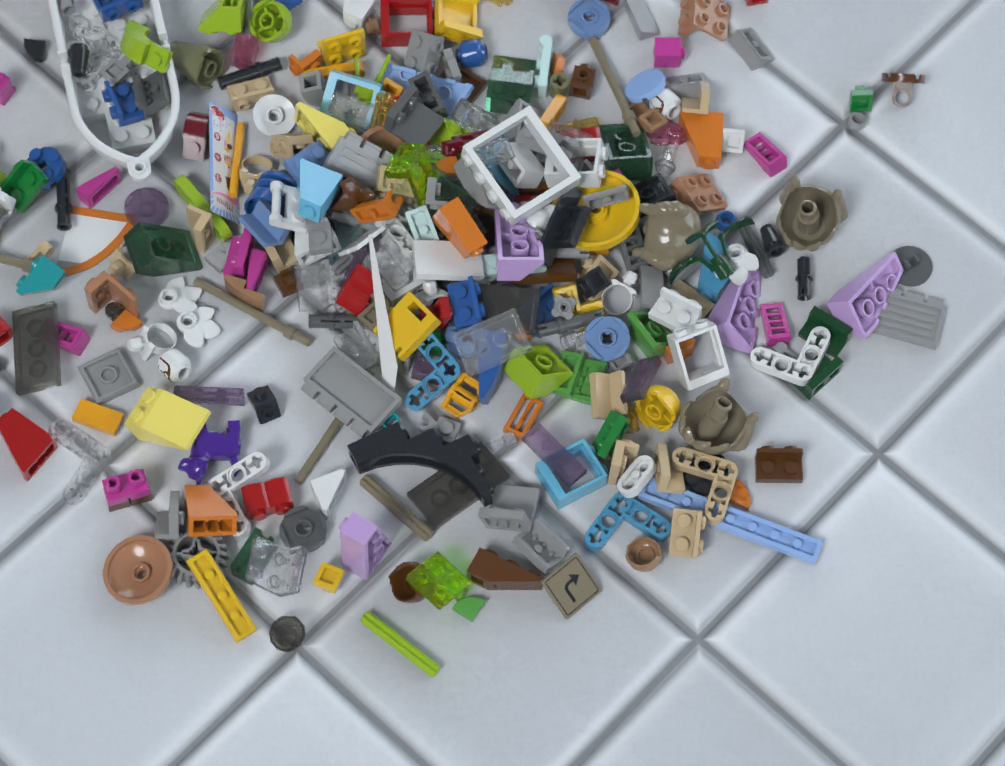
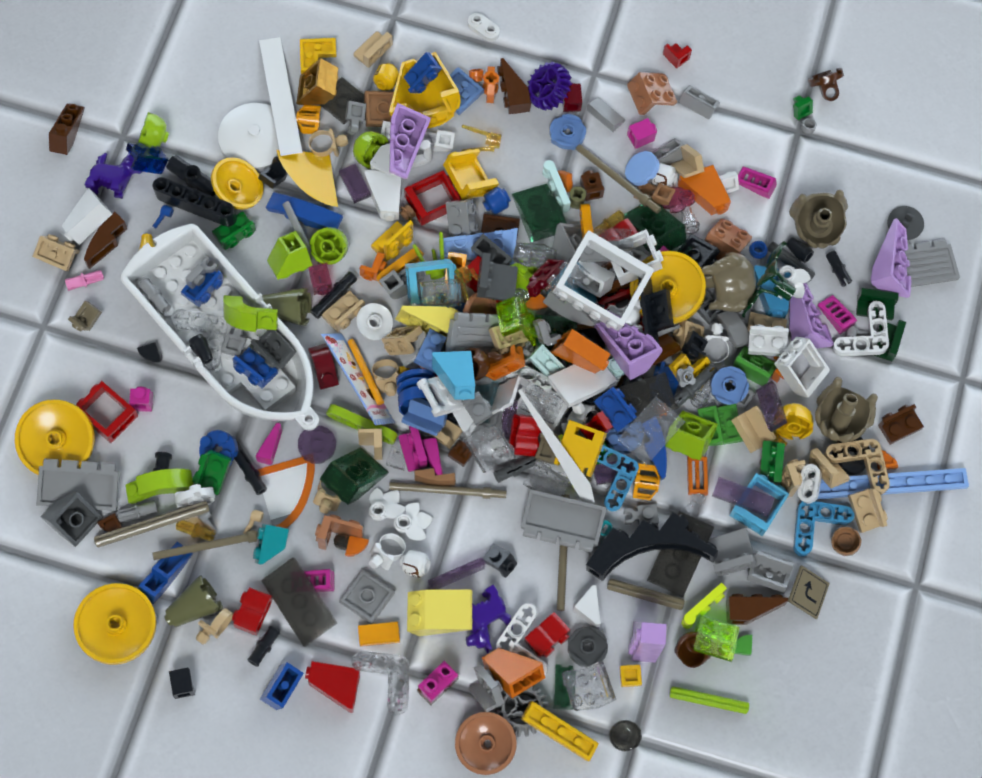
camera: 30 degrees left, 5 degrees up
(450, 546) = (702, 607): none -> neon yellow plate
(452, 70) = (491, 221): light grey plate -> none
(607, 197) = (673, 274): light grey slope -> none

